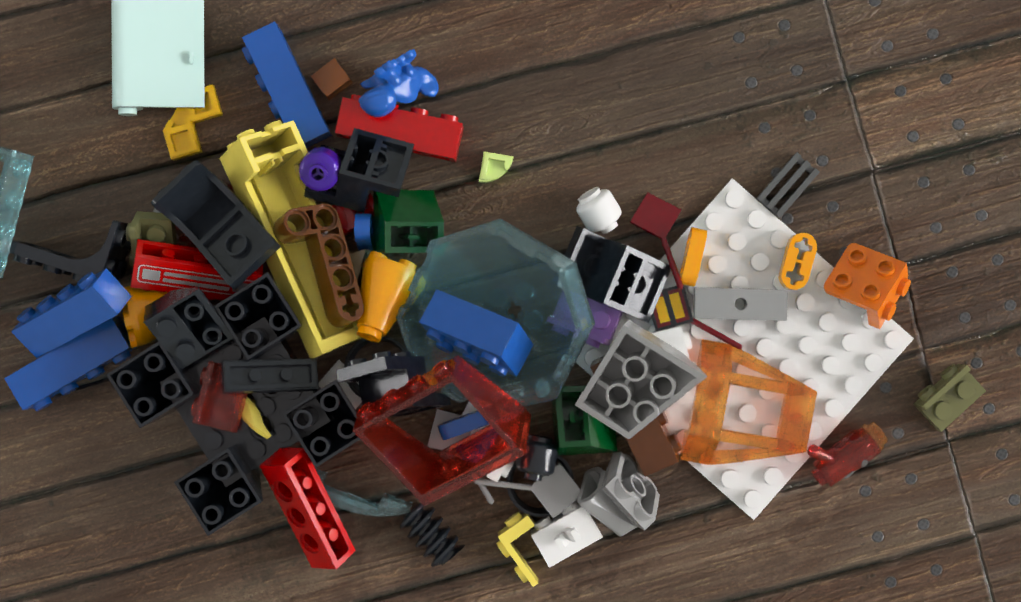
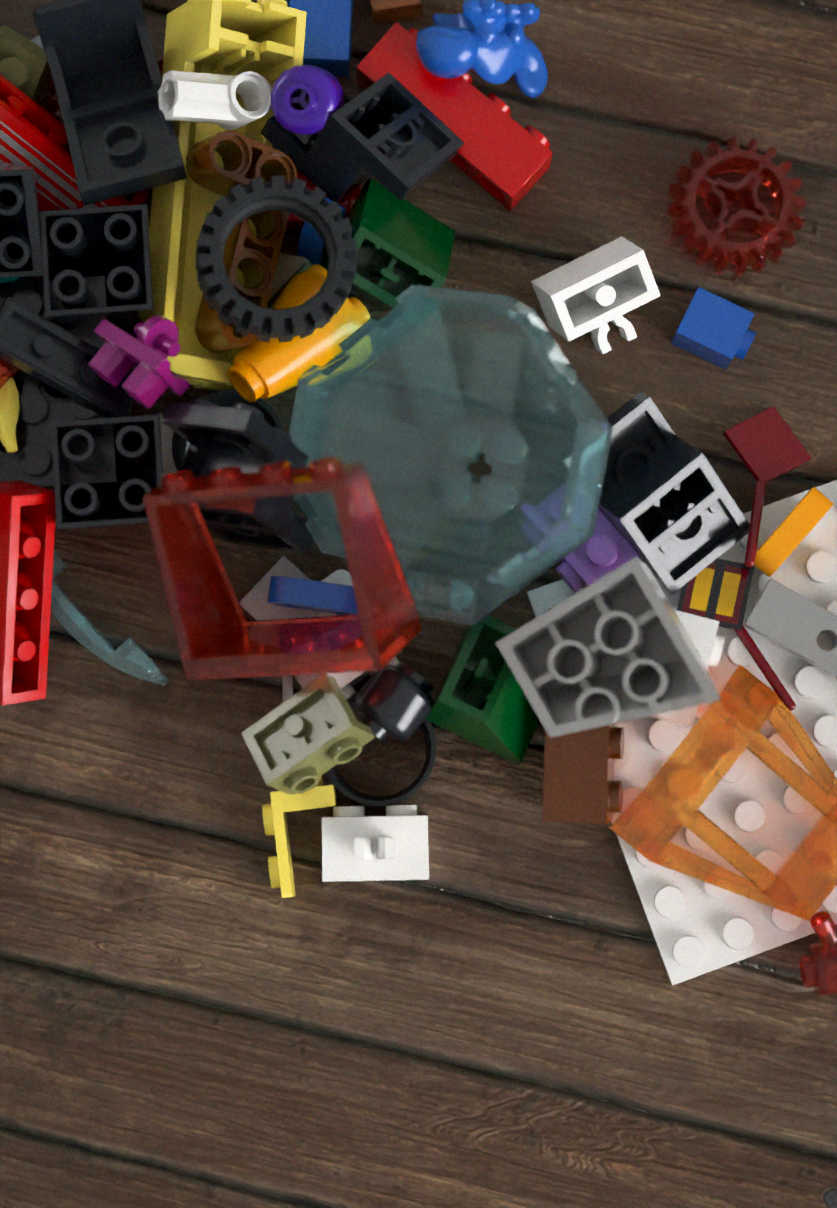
camera: 30 degrees right, 5 degrees down
(271, 195) = (213, 98): none -> white piece
(312, 342) = (146, 353): none -> magenta hips
(338, 230) = (283, 197): none -> black tyre
(430, 534) = (170, 736): black piece -> none
(476, 334) = (409, 461): blue brick -> none
(494, 166) = (562, 245): yellowish green tile -> none
(502, 502) = (306, 737): none -> olive bracket
(525, 183) = (597, 291): none -> white brick
(554, 491) = (394, 770): light grey piece -> none
(586, 98) = (721, 194): none -> clear red gear
(596, 169) = (715, 329): none -> blue brick
(598, 210) = (686, 390): white head -> none
(619, 495) = (488, 831): light grey piece -> none

